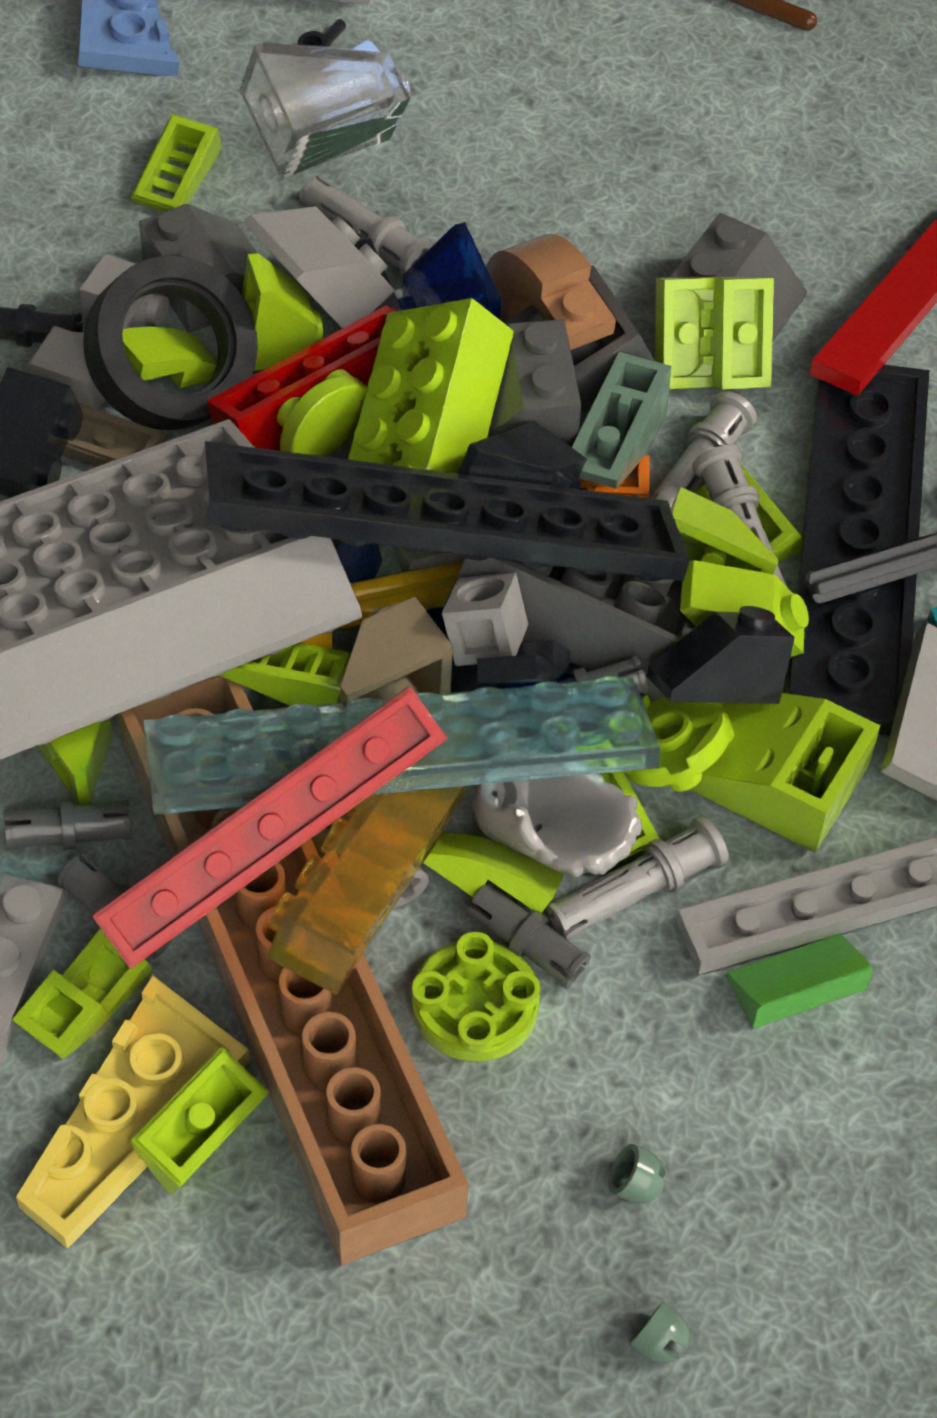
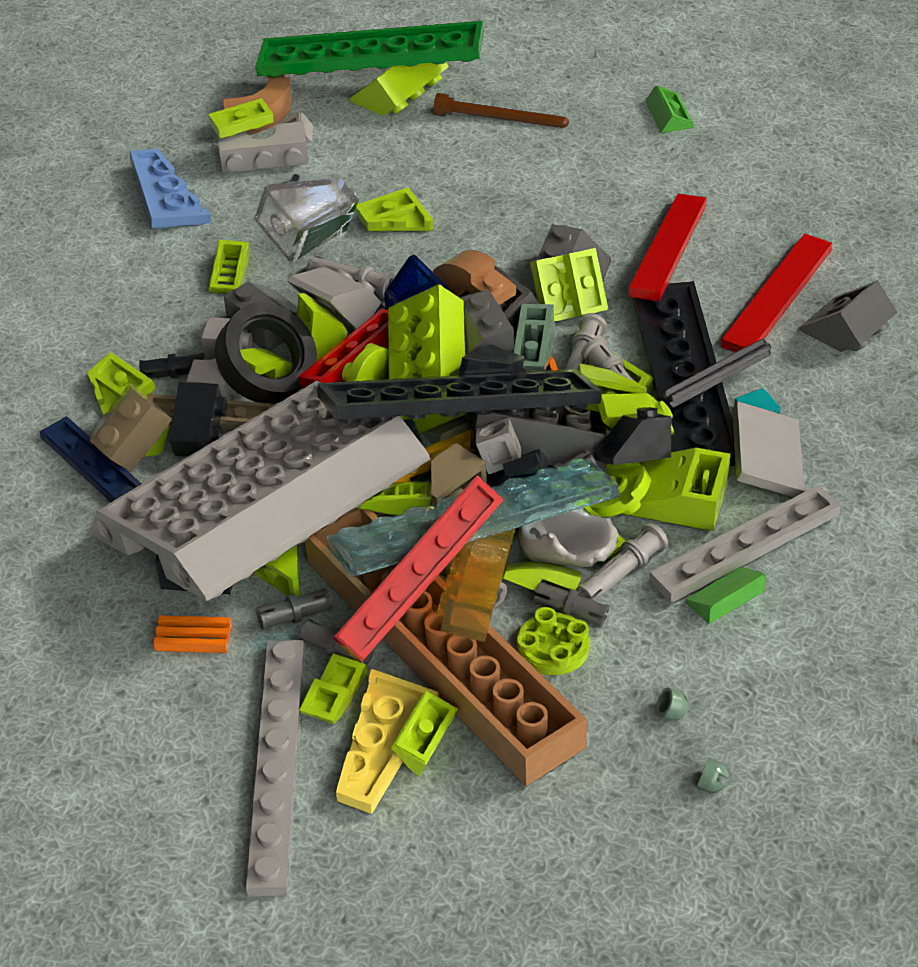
camera: 10 degrees left, 10 degrees down
(475, 127) = (394, 213): none -> lime wing

